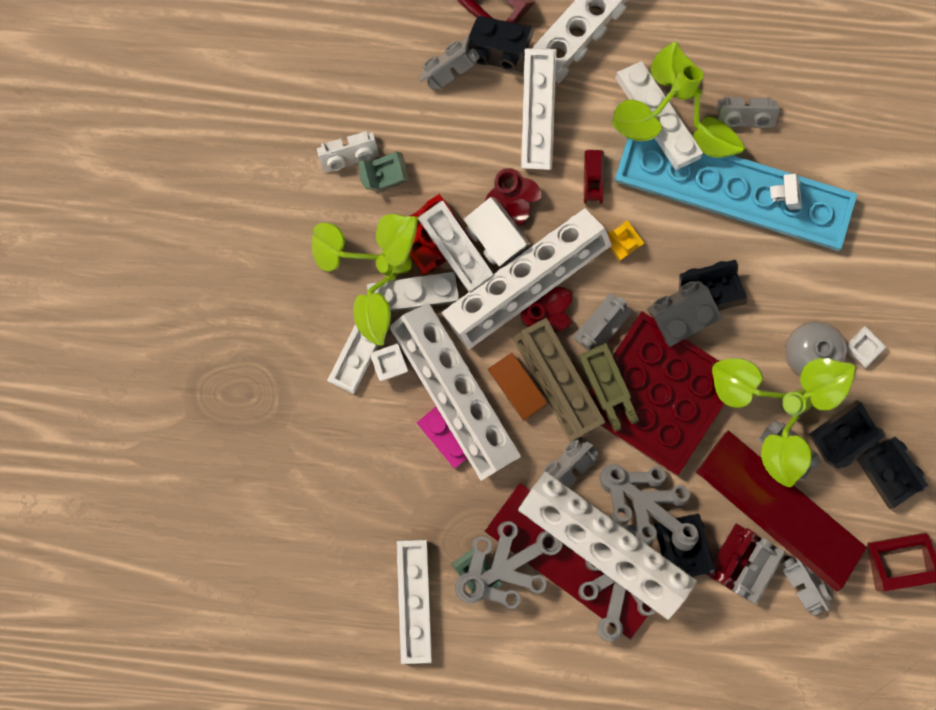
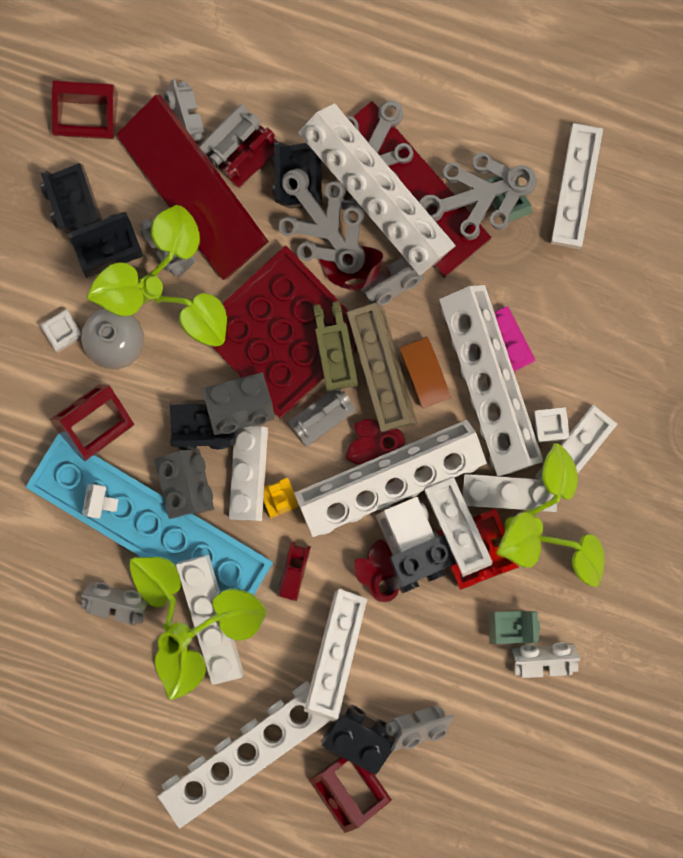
camera: 170 degrees left, 0 degrees up
(483, 204) = (419, 562): none -> black bracket
(619, 457) = (368, 272): none -> dark red piece
(657, 253) = (248, 473): none -> white plate
(713, 230) = (184, 483): none -> dark grey bracket
(824, 277) = (82, 408): none -> dark red tile

